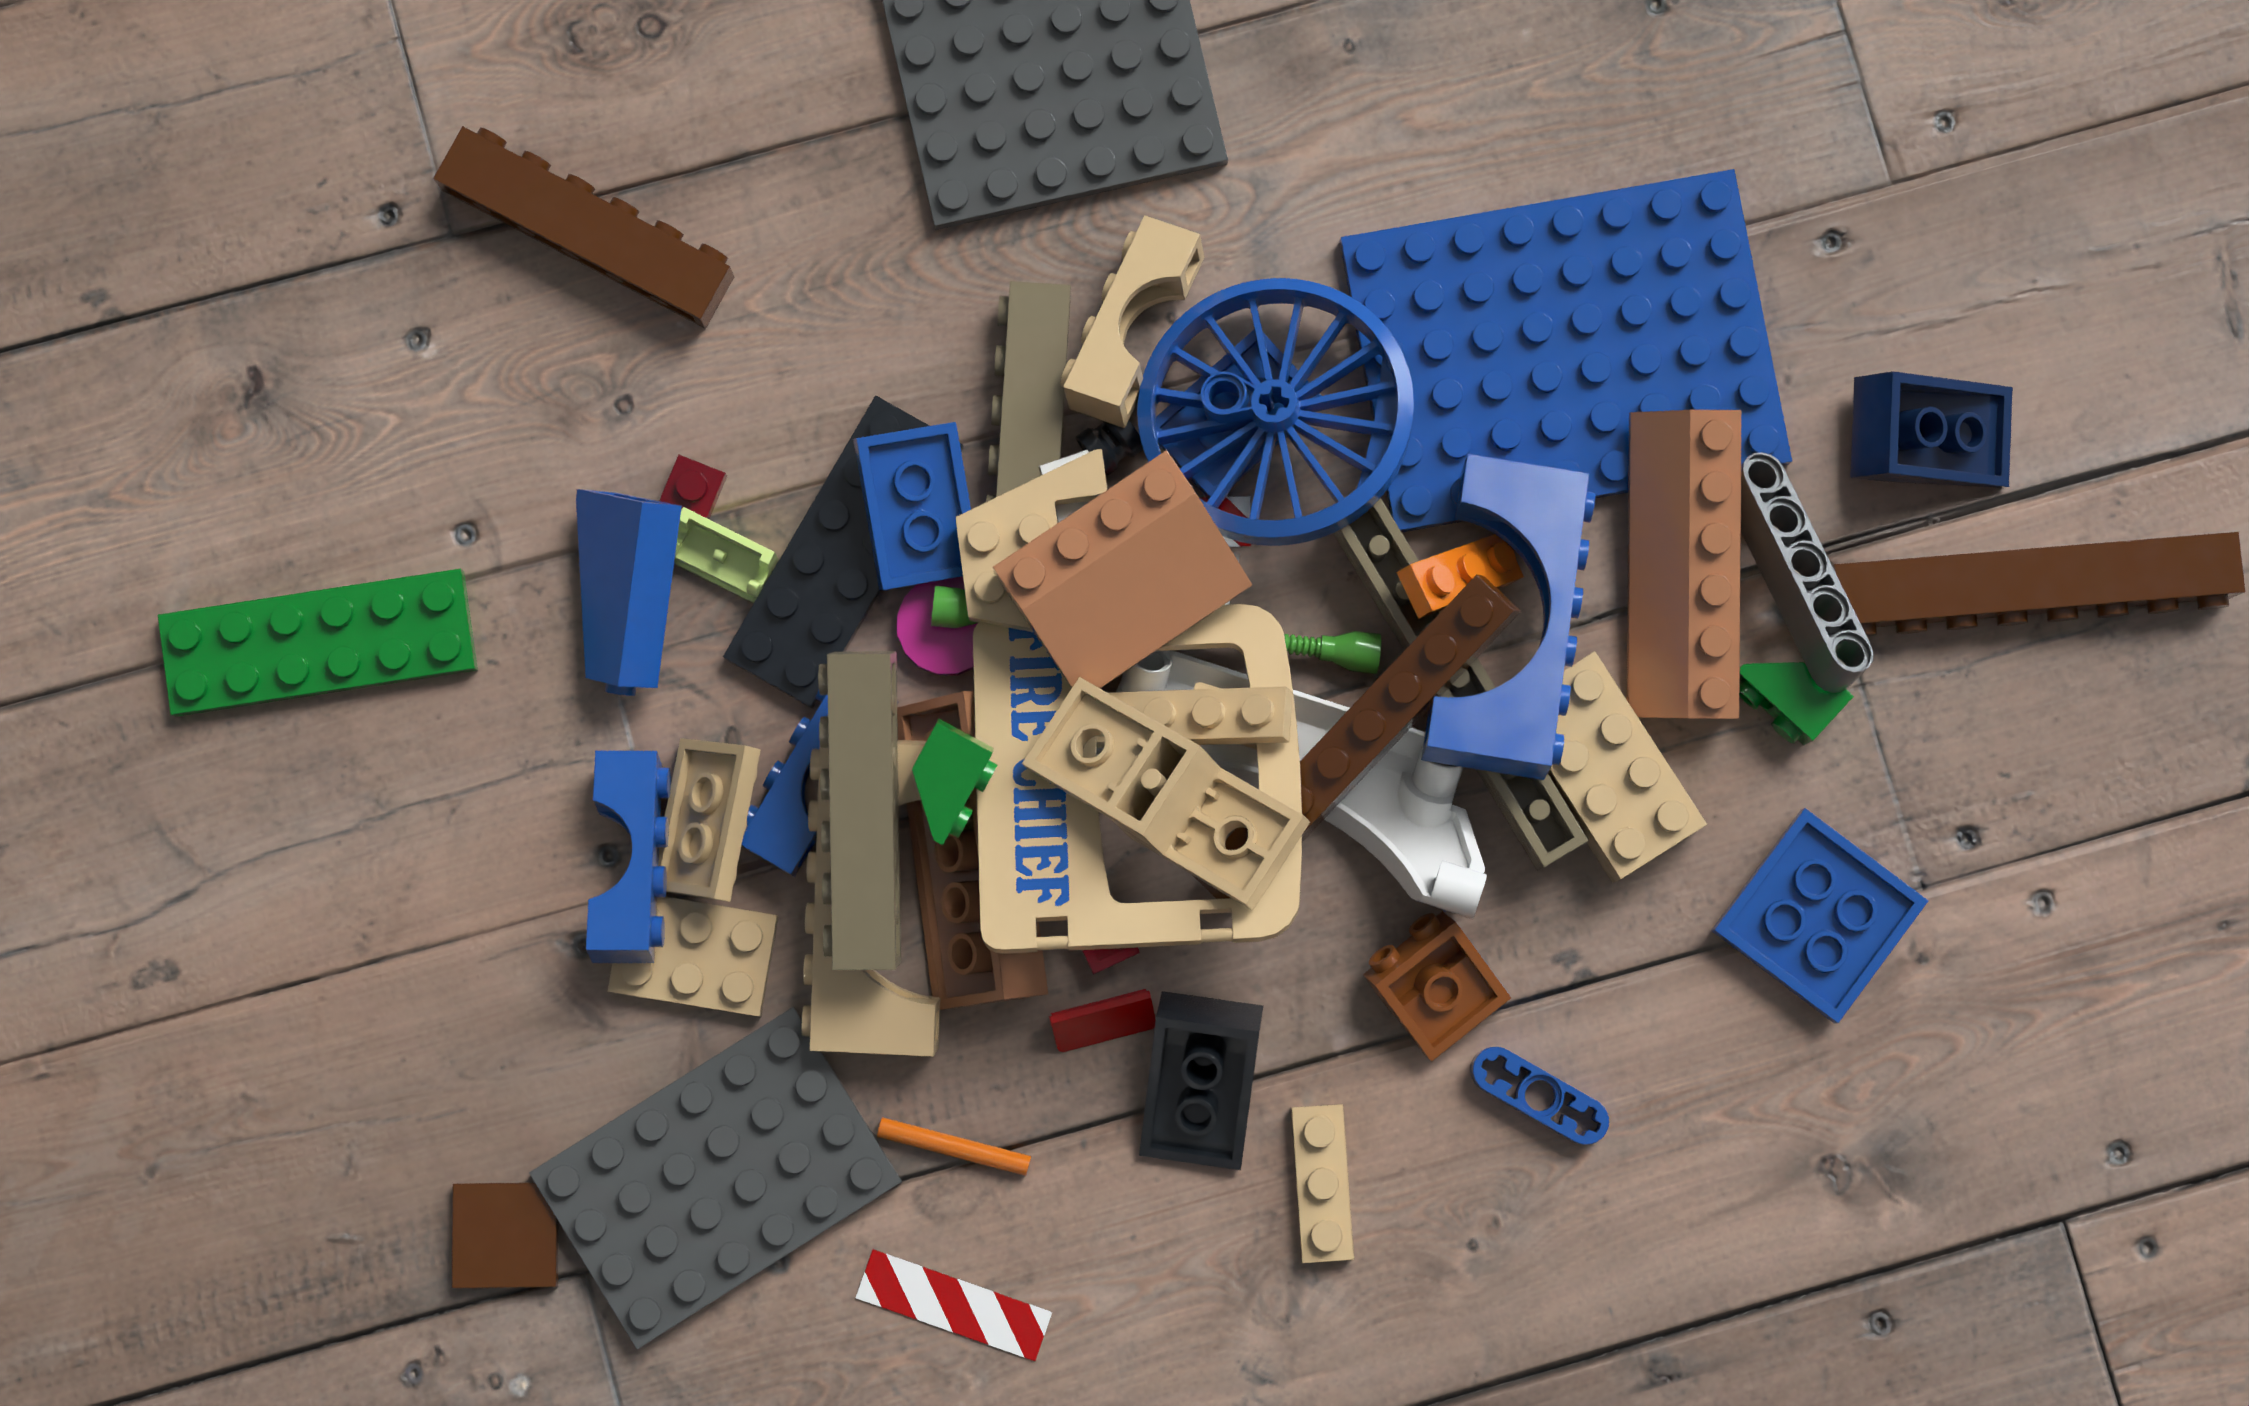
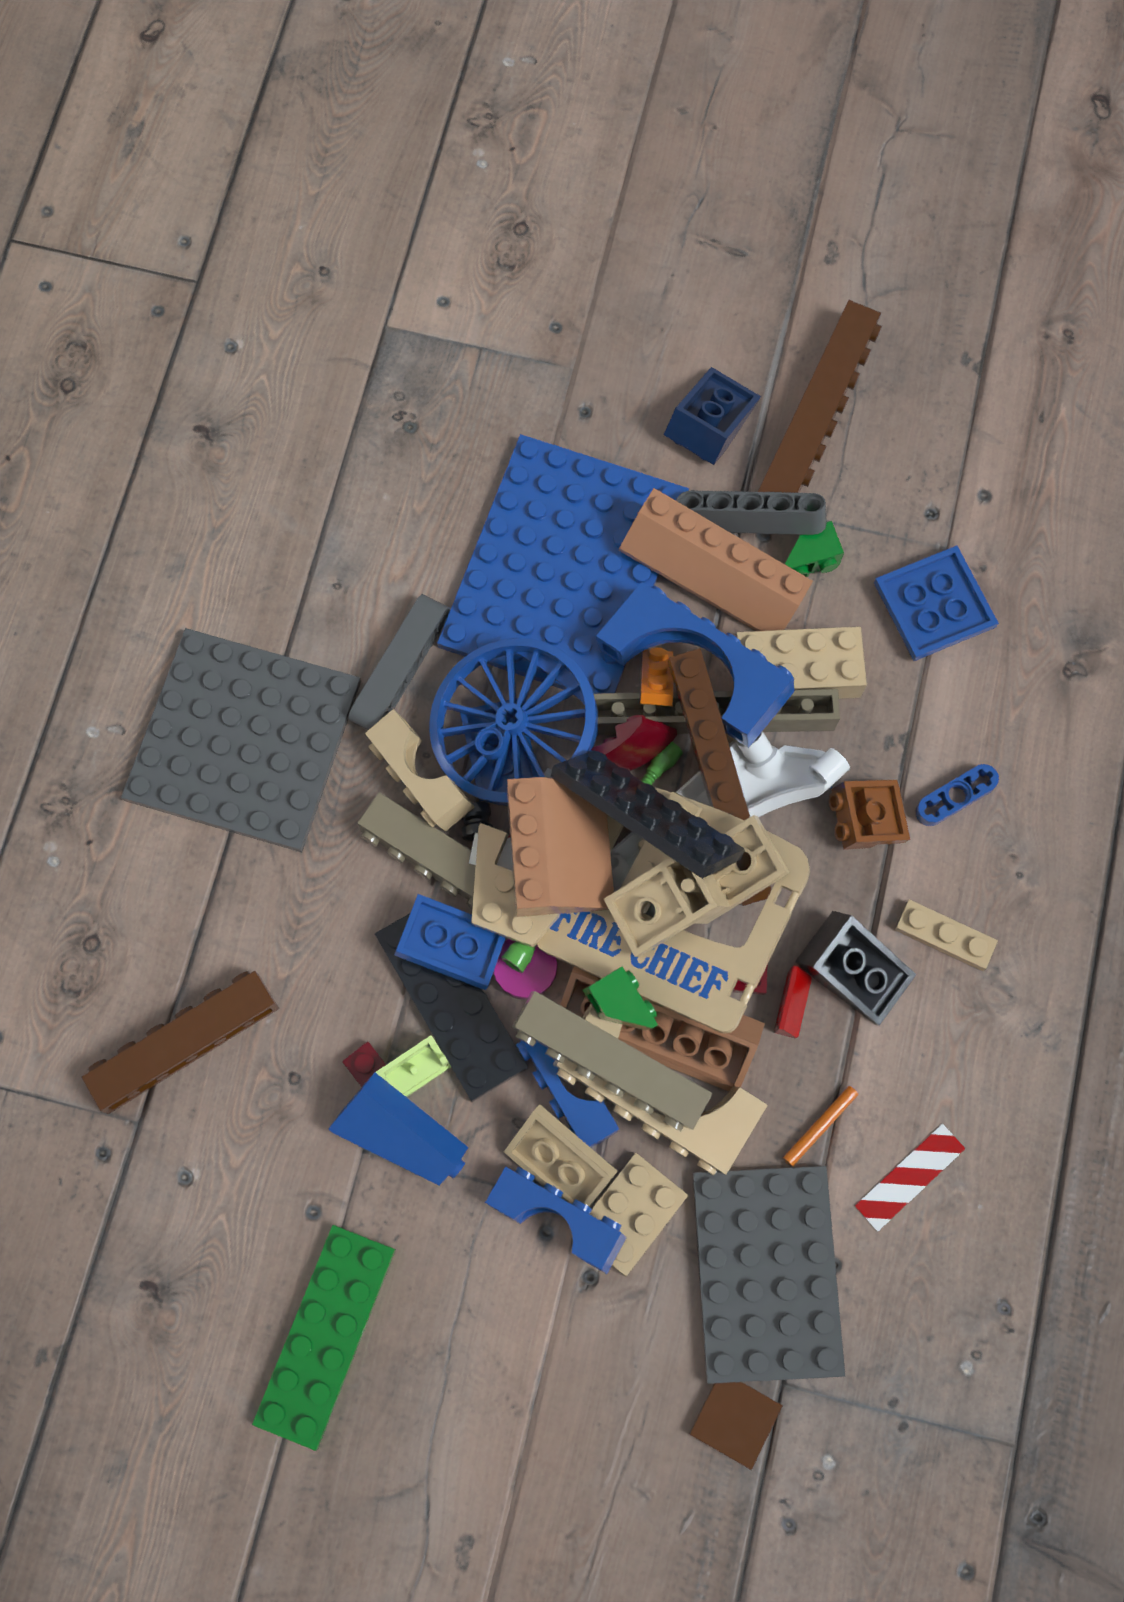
camera: 55 degrees left, 10 degrees down
(1225, 668) = (648, 813): none -> black plate
(1281, 202) = (399, 662): none -> dark grey beam
(1341, 597) = (636, 742): none -> dark red slope

